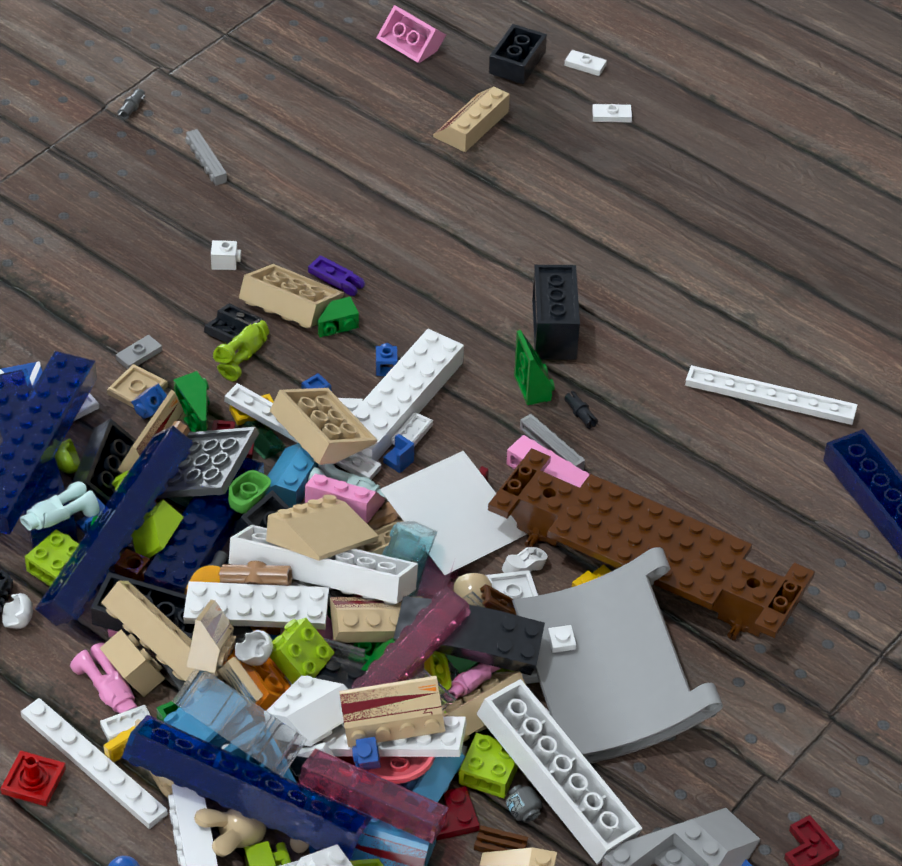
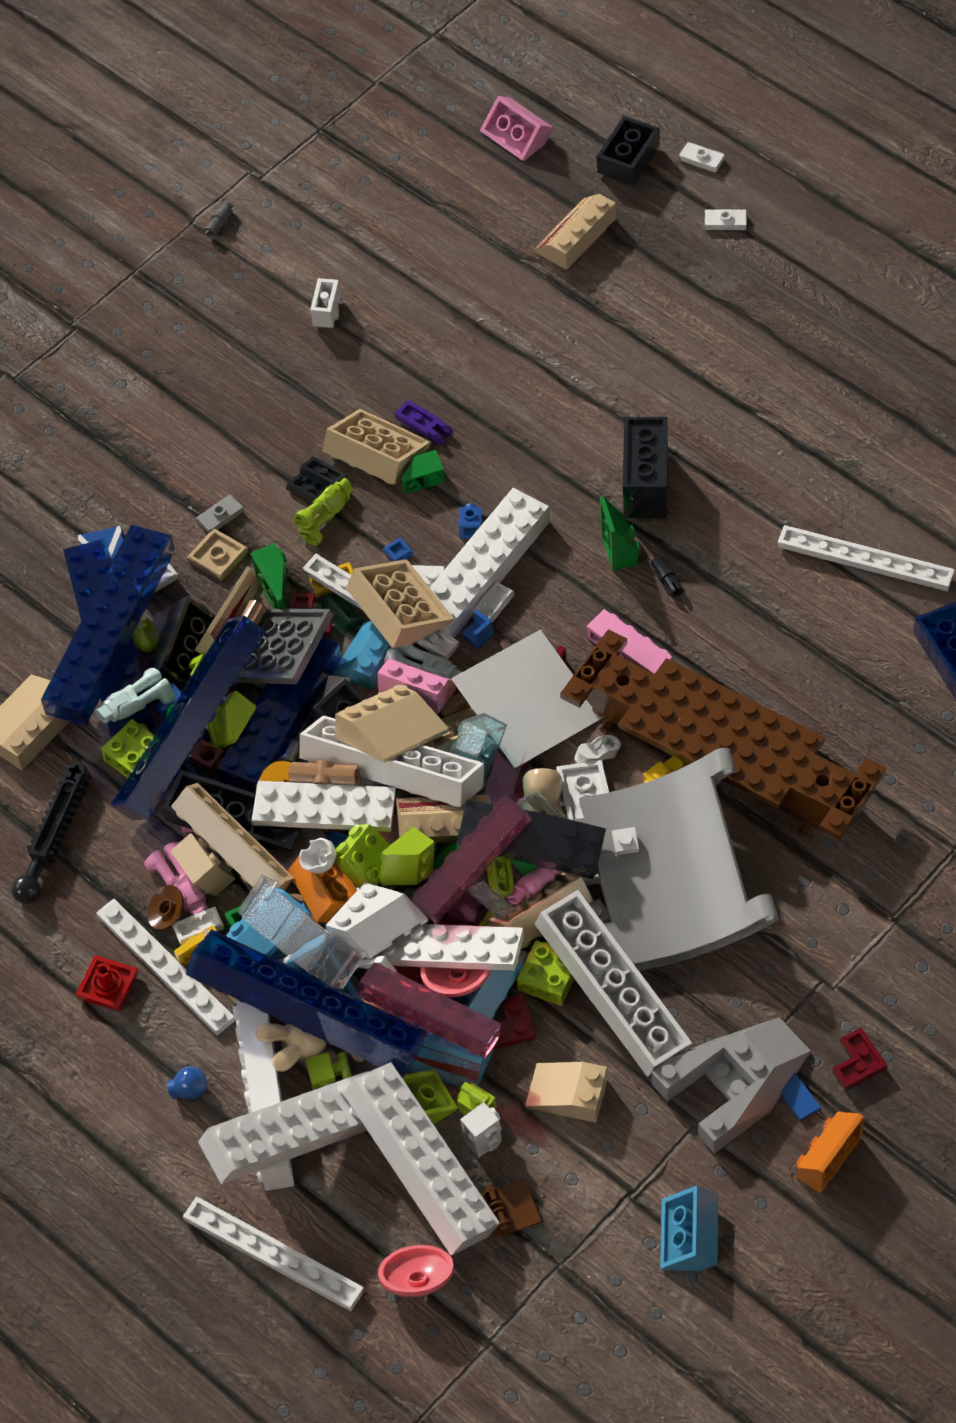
camera: 10 degrees right, 10 degrees up
(18, 612) = (94, 807): white hair -> none
(93, 705) = (165, 907): none -> reddish brown dish
(149, 401) = (220, 573): blue brick -> none
(206, 157) = (295, 282): light grey piece -> none
(211, 639) = (275, 849): tan slope -> none
(225, 255) = (310, 400): white brick -> none
(237, 173) = (326, 302): none -> white brick
(240, 680) = (303, 894): tan tile -> none
(248, 490) = (321, 677): bright green piece -> none
(345, 652) = (407, 859): none -> lime slope
(366, 753) = (423, 968): blue brick -> none
(392, 710) = (449, 925): tan slope -> none
(496, 600) = (566, 803): reddish brown tile -> none
(500, 838) = (577, 1051): reddish brown tile -> none
(524, 803) = (579, 1013): dark grey head -> none
(542, 435) = (633, 615): light grey piece -> none

